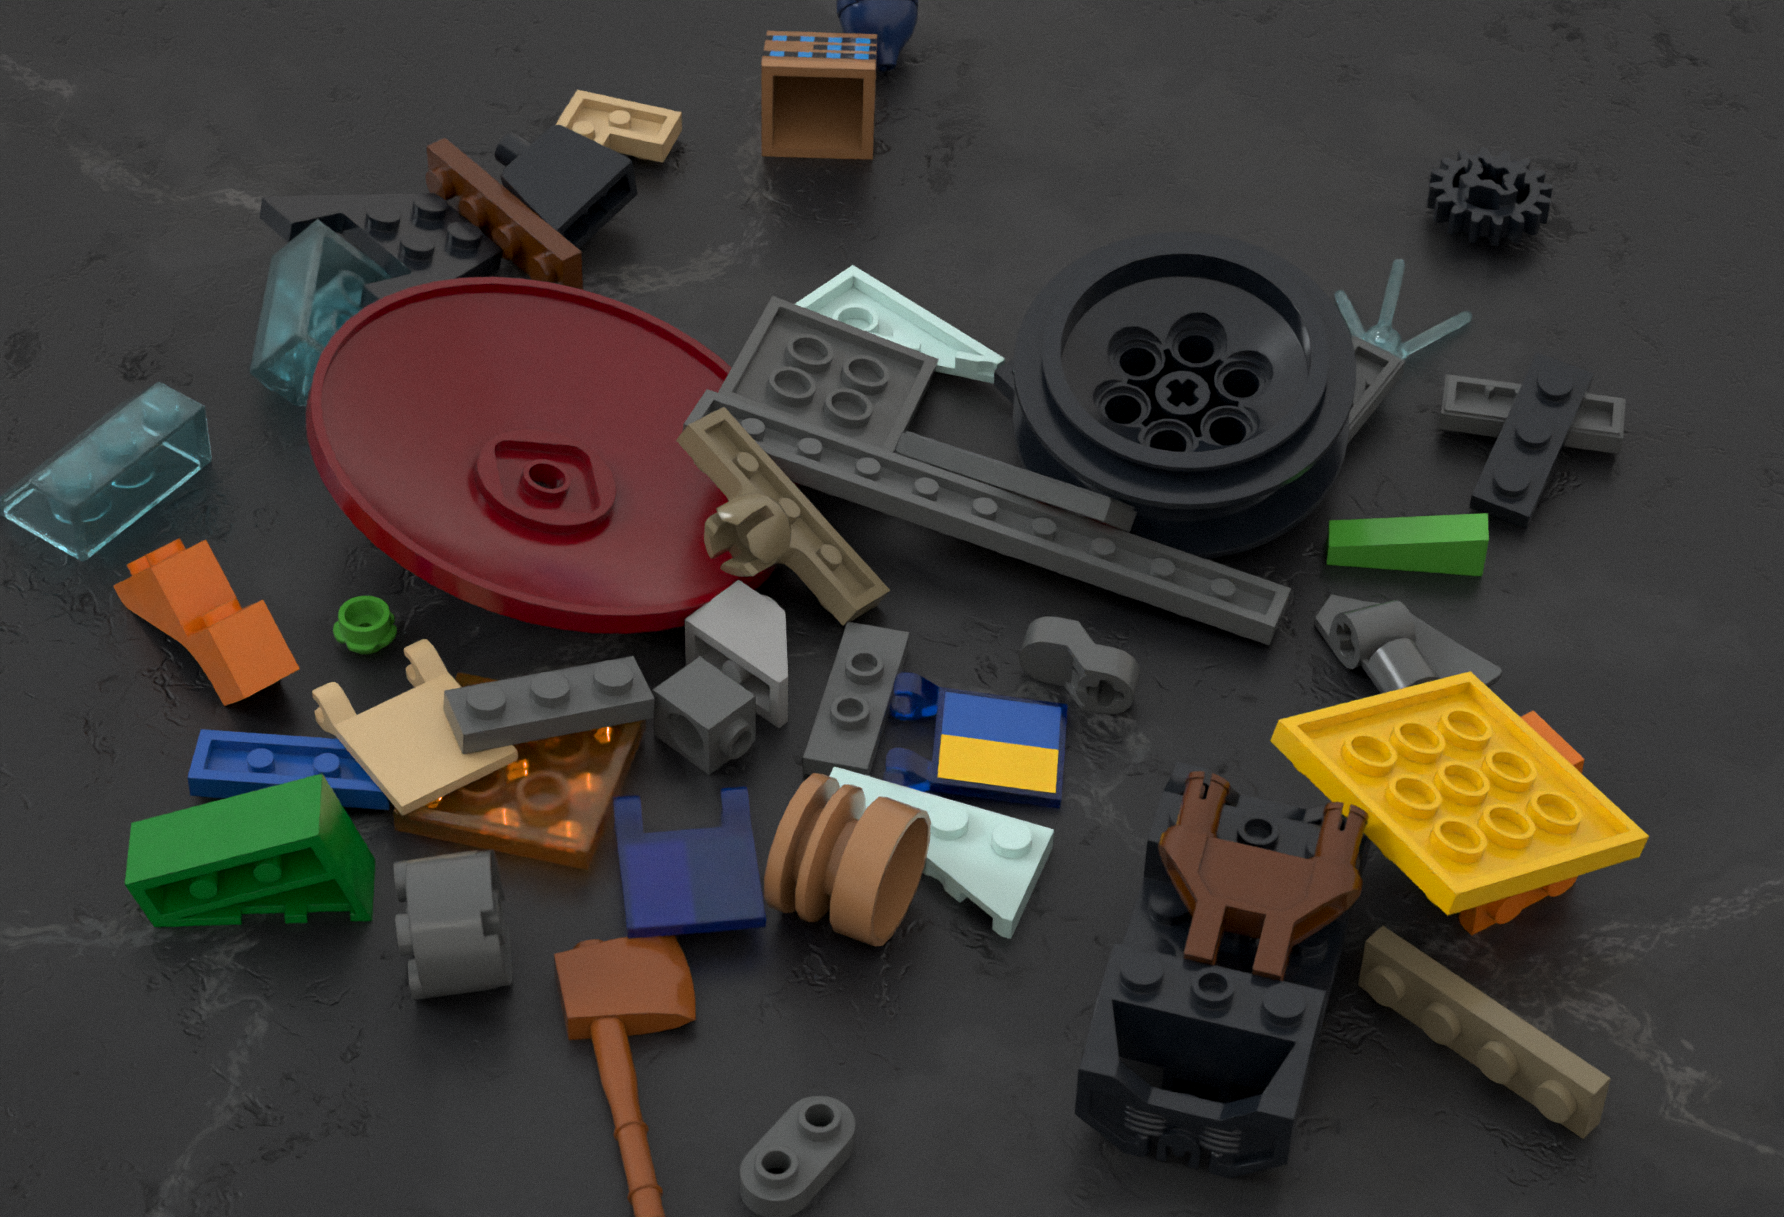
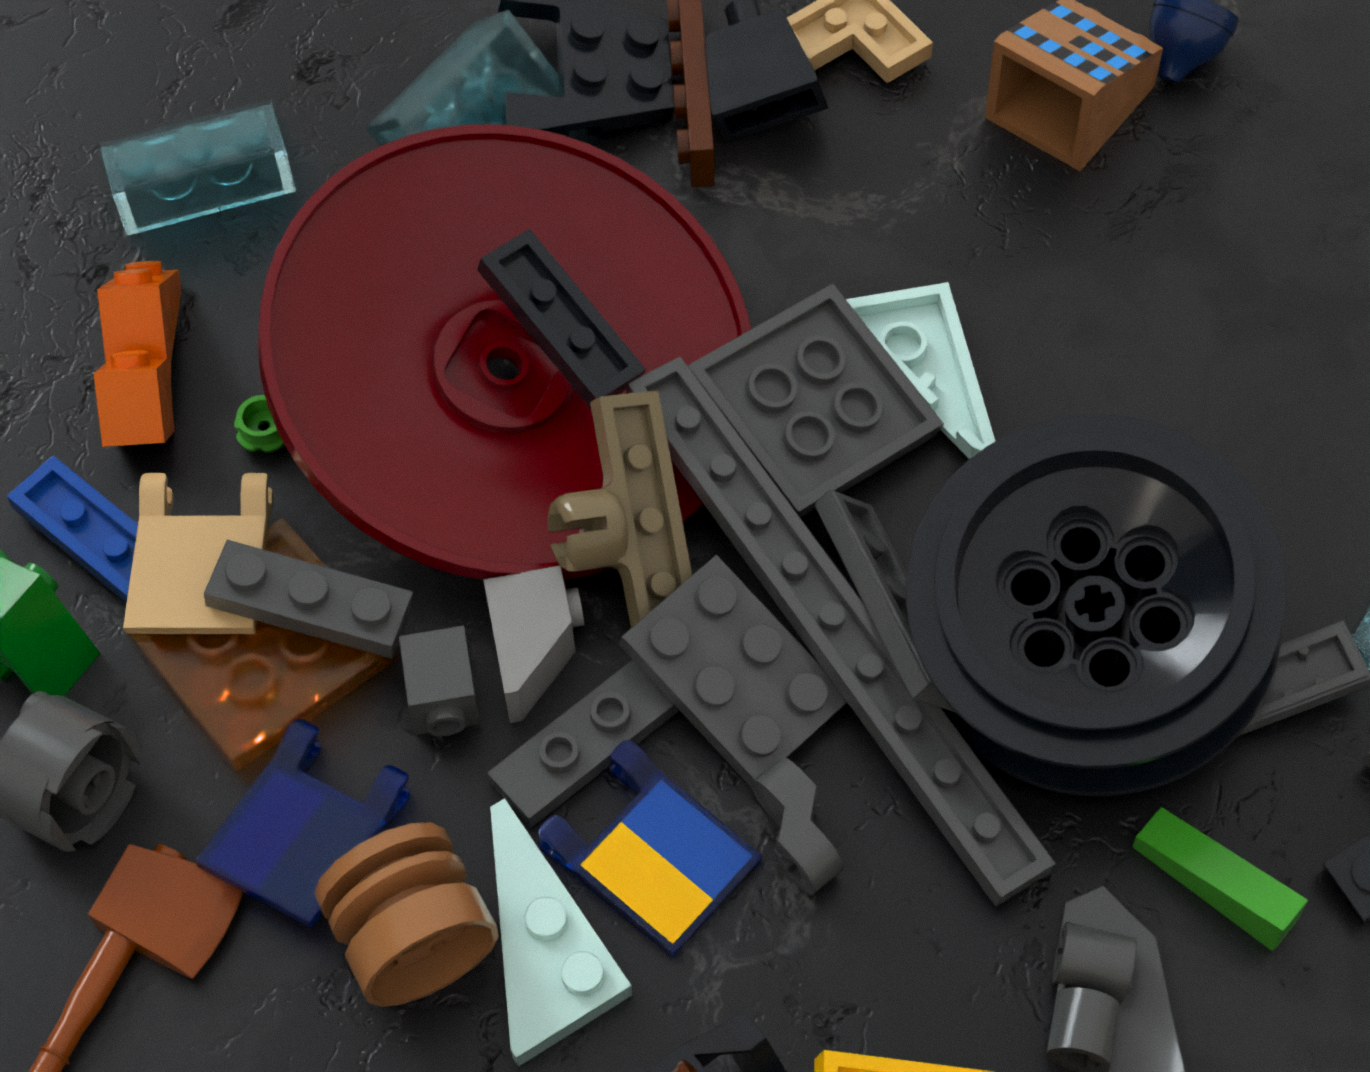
camera: 40 degrees right, 15 degrees up
(591, 400) = (560, 318): none -> black plate
(937, 590) = (733, 670): none -> dark grey plate

